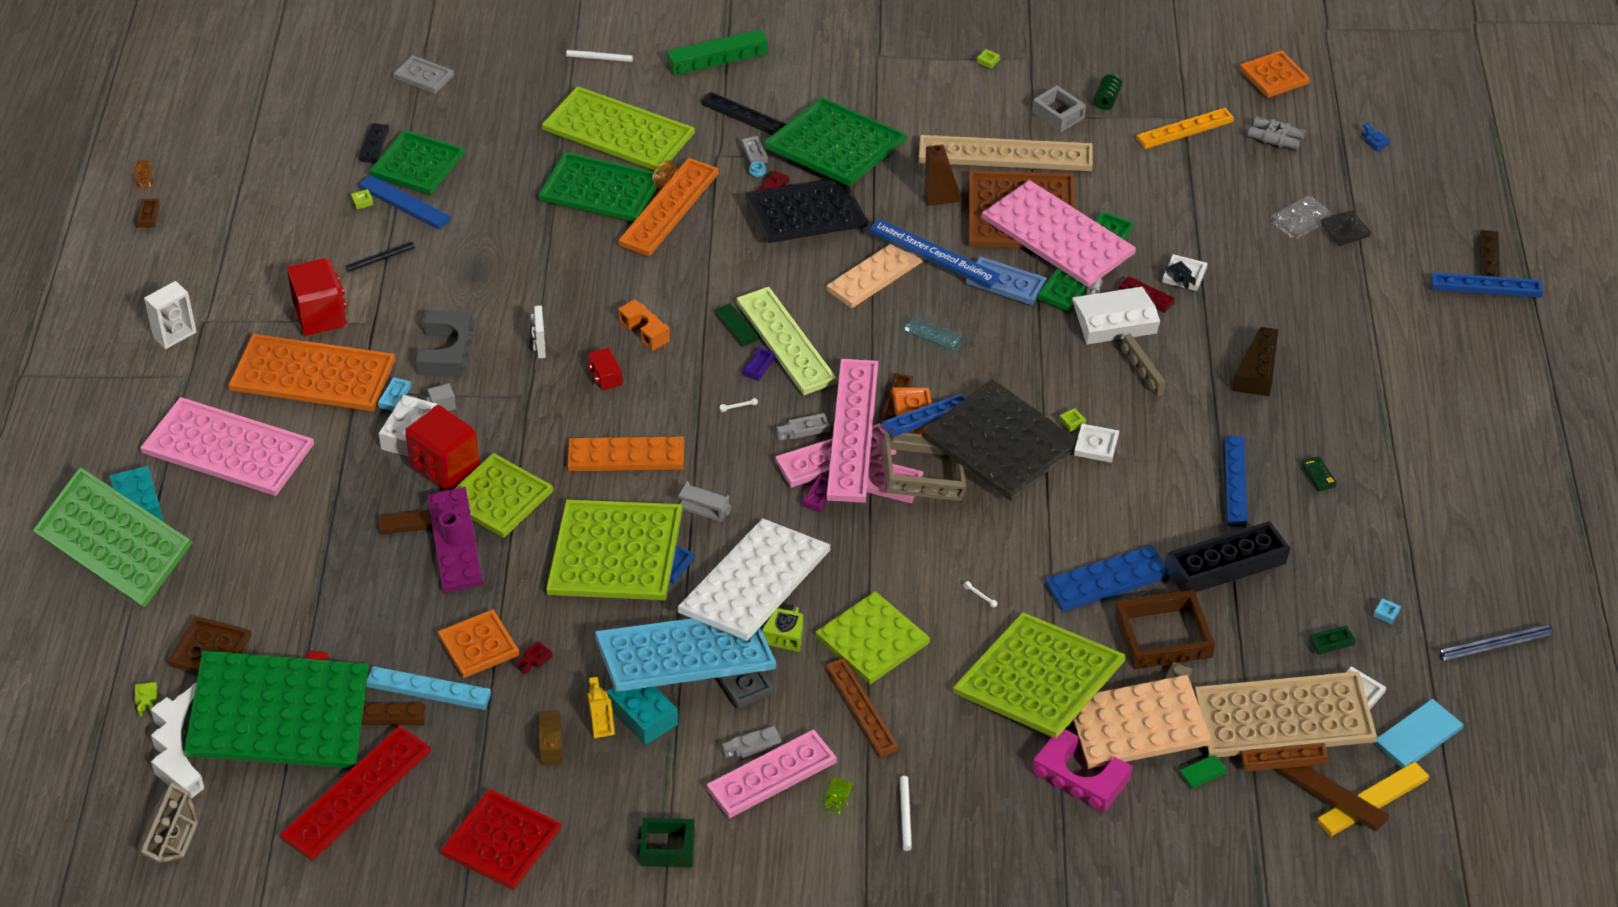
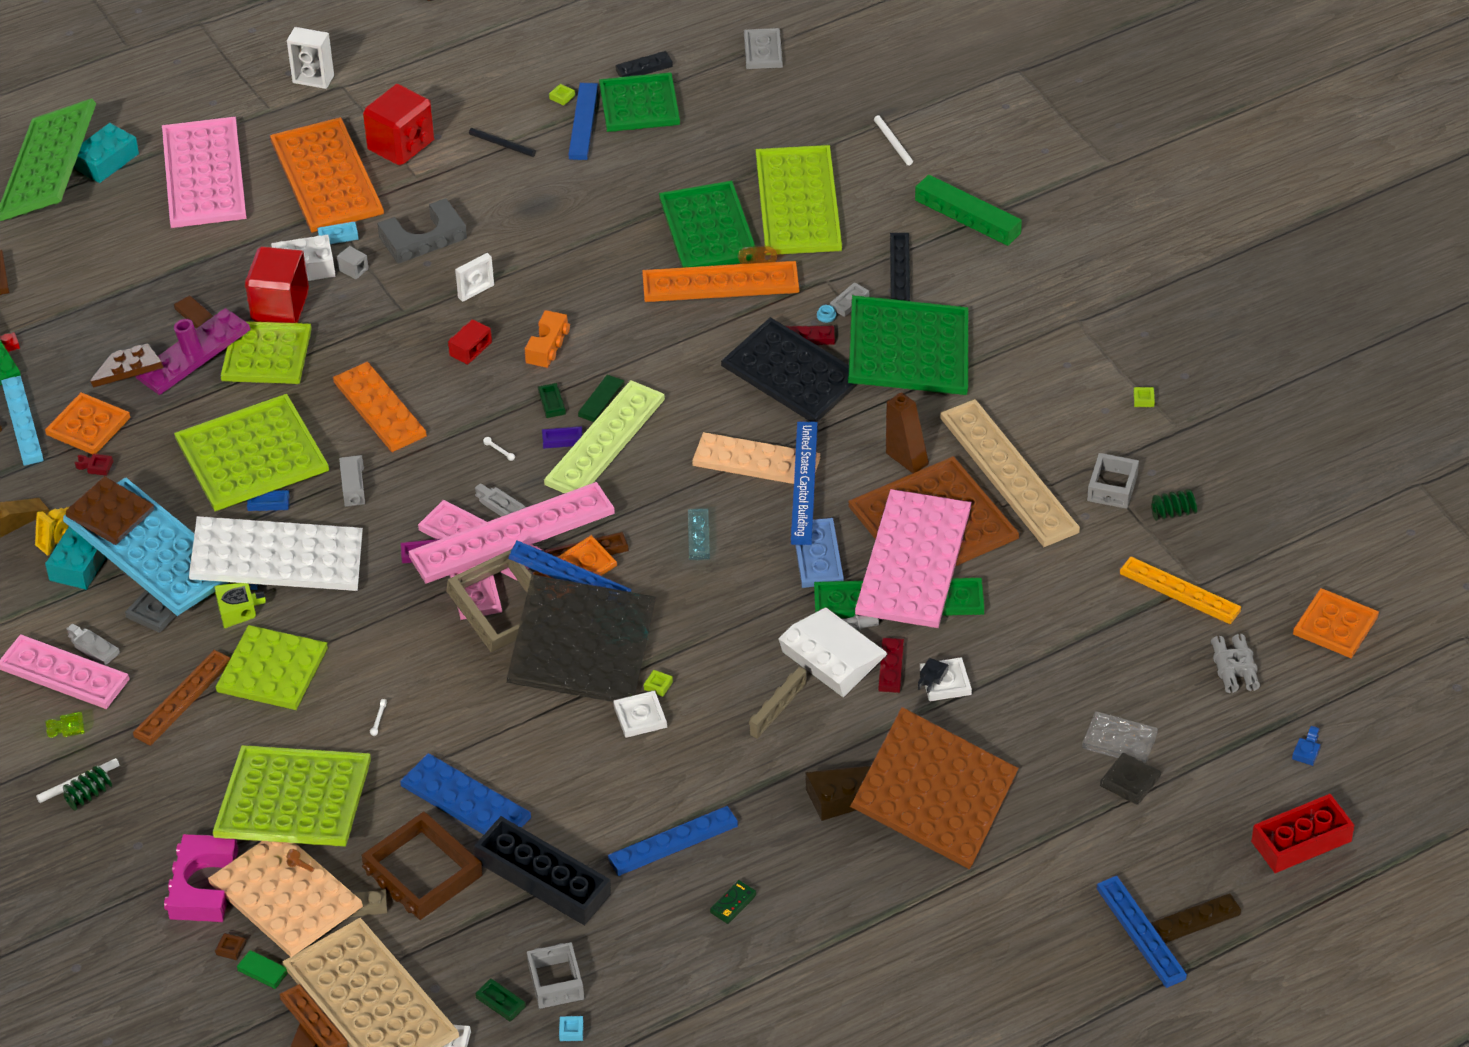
camera: 60 degrees right, 0 degrees up
(432, 585) = (127, 364): none -> wing
(633, 654) = (109, 510): none -> reddish brown plate
(711, 353) = (551, 400): none -> dark green tile
(926, 806) = (85, 786): none -> dark green piece
(1118, 697) = (293, 860): none -> dark orange hand
(1164, 783) = (230, 946): none -> reddish brown tile
(1295, 318) = (934, 788): none -> dark orange plate
(1331, 585) = (560, 992): none -> light grey window
(1456, 171) = (1302, 833): none -> red brick

